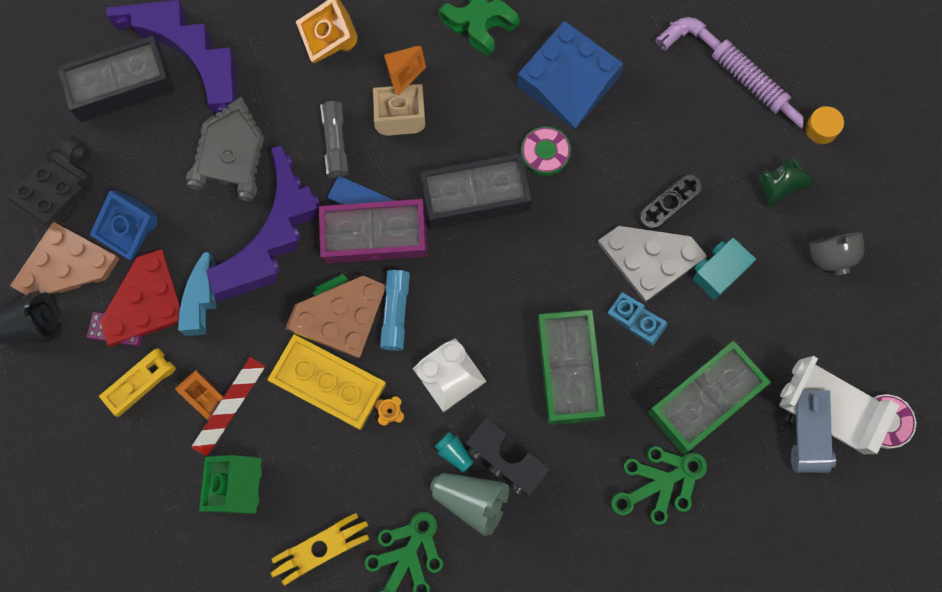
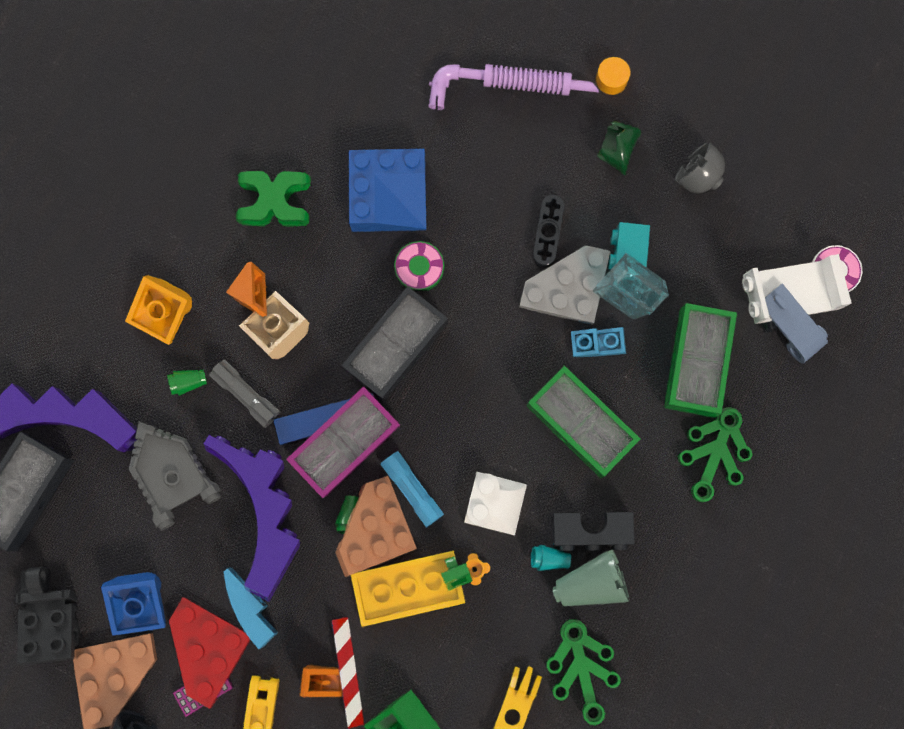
camera: 45 degrees left, 5 degrees up
(300, 97) = (185, 381): none -> green cone
(369, 400) = (456, 575): none -> green tile
(699, 294) = (632, 288): none -> clear light blue slope

